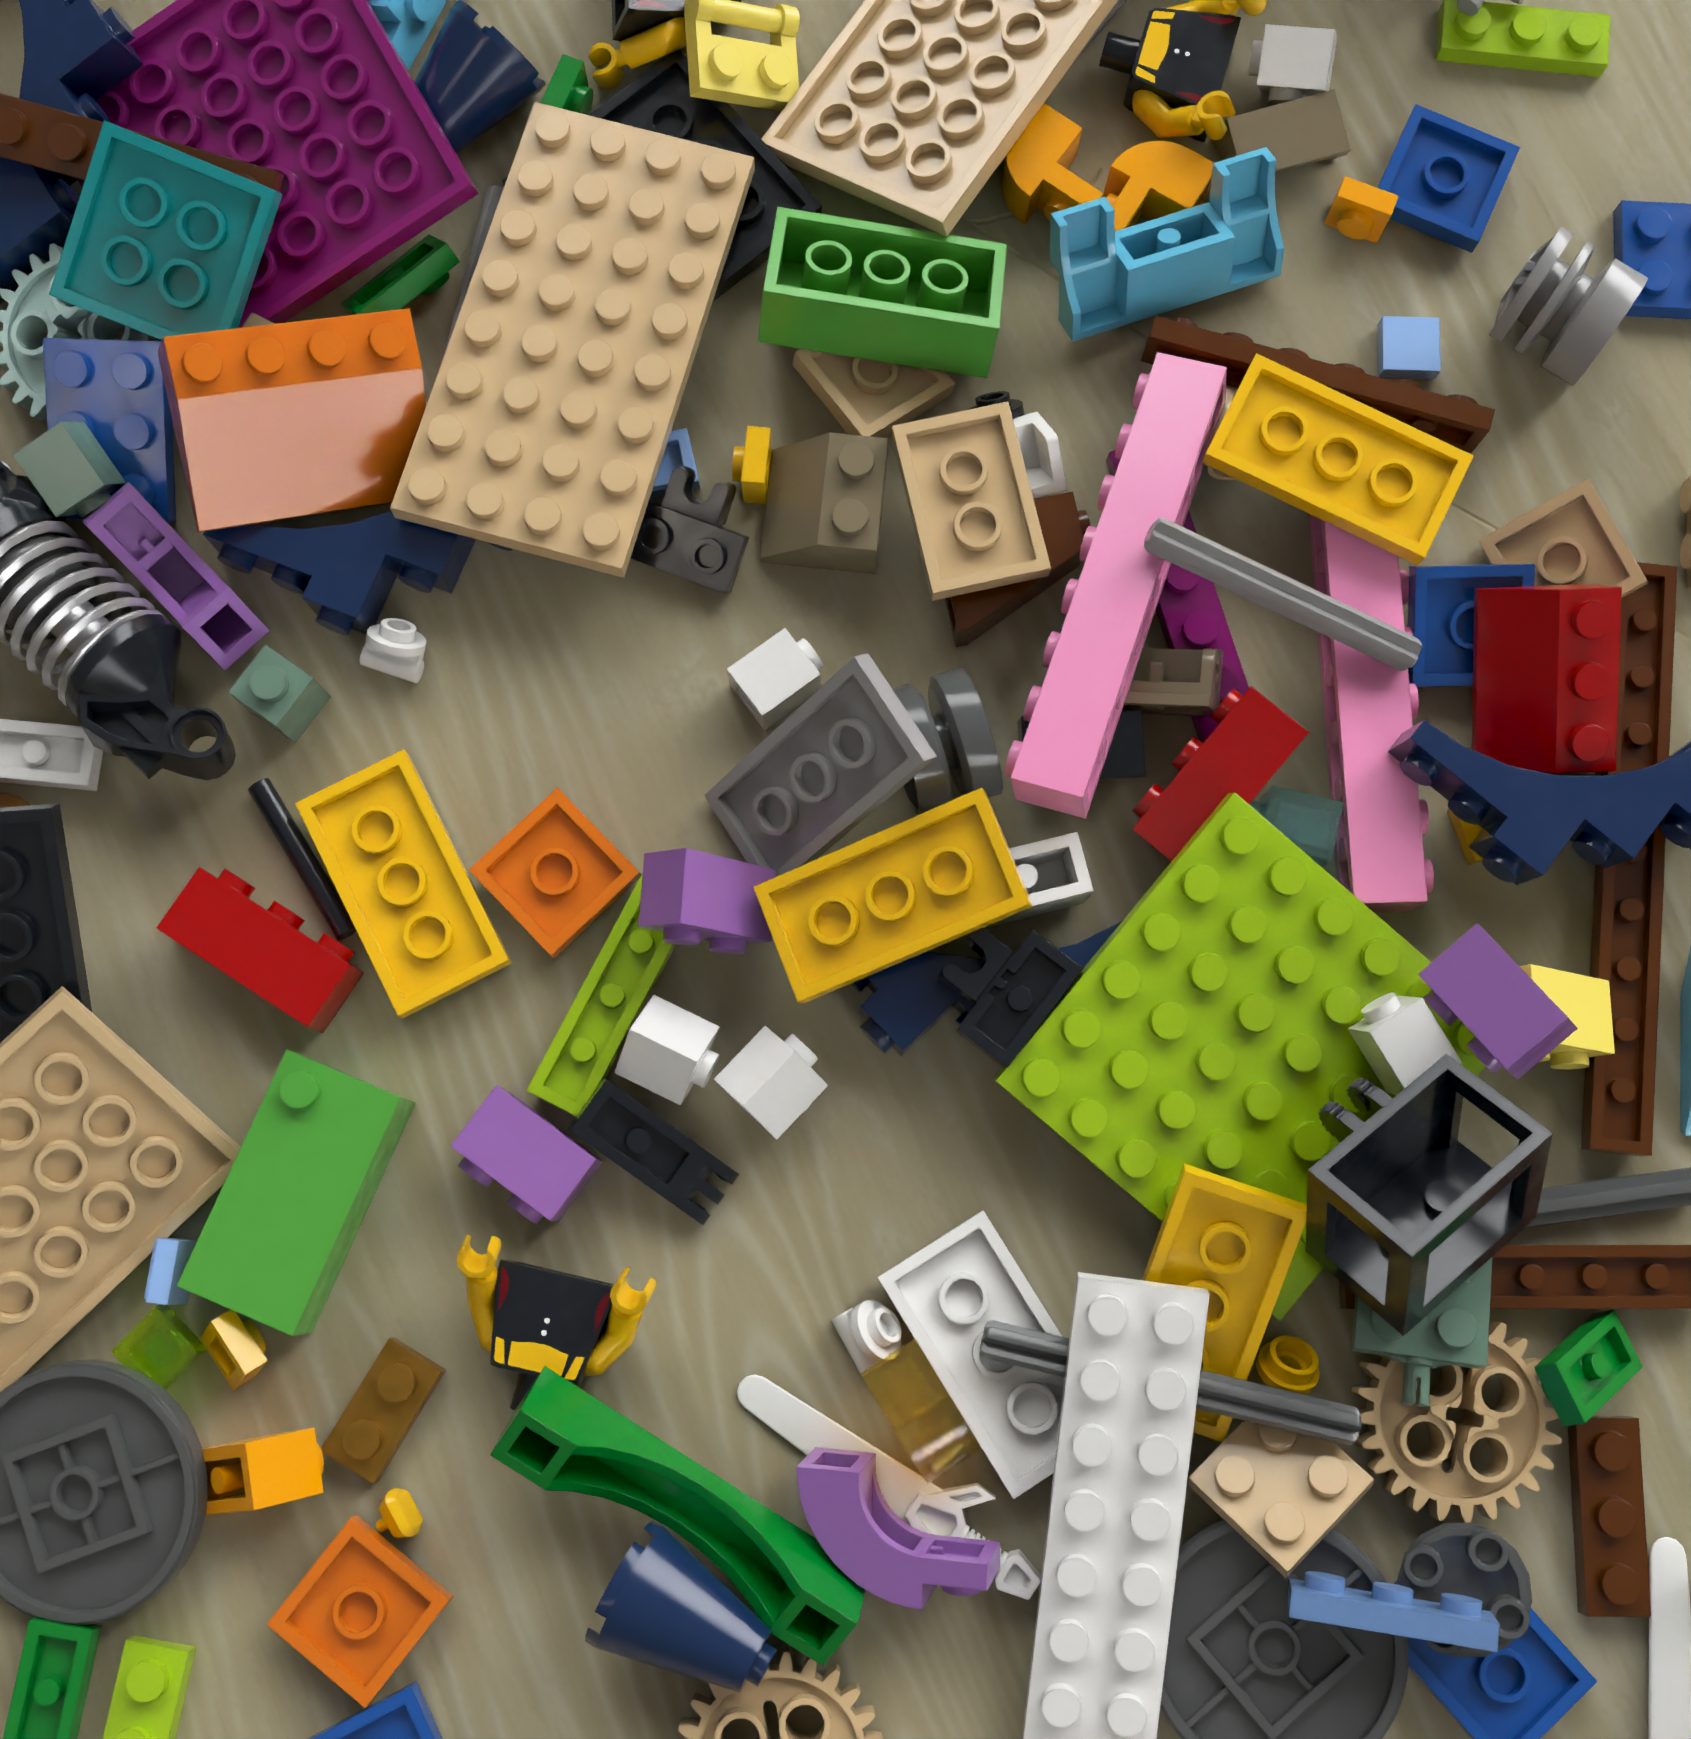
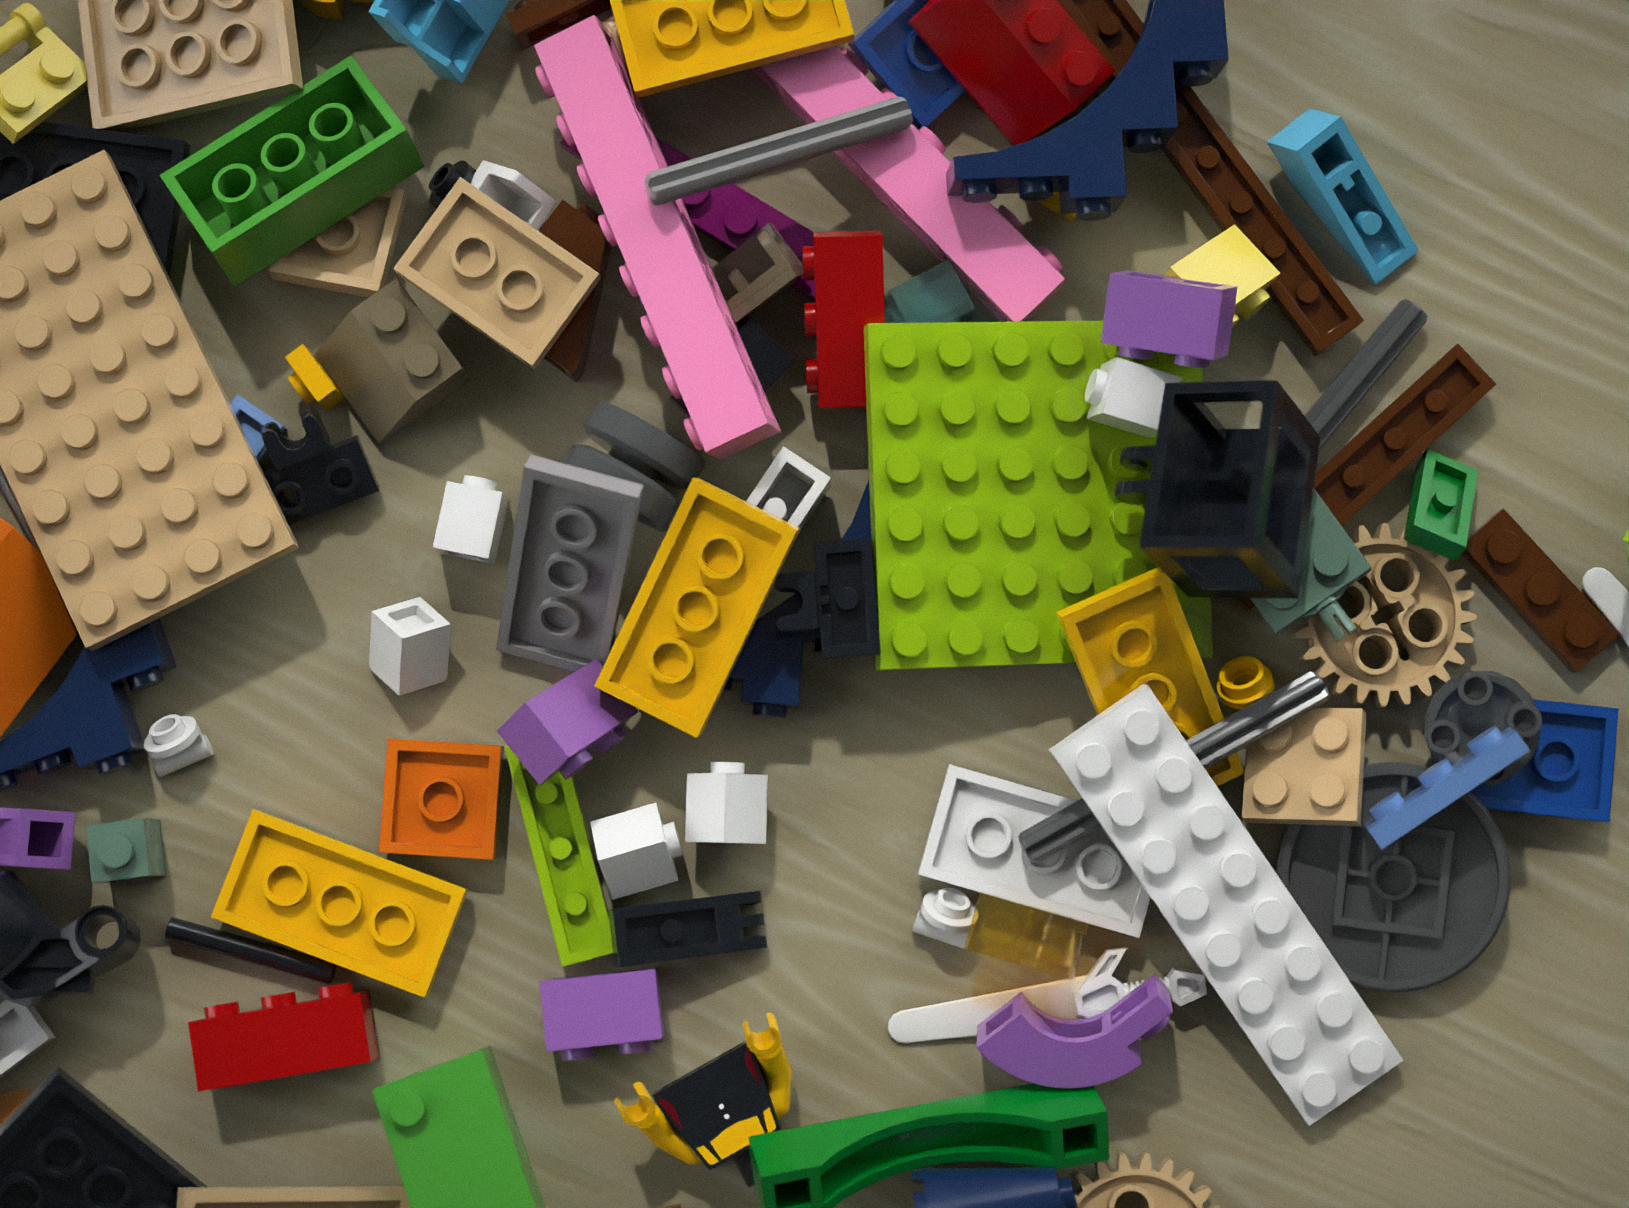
camera: 40 degrees left, 5 degrees up
(640, 732) = (409, 645): none -> white panel

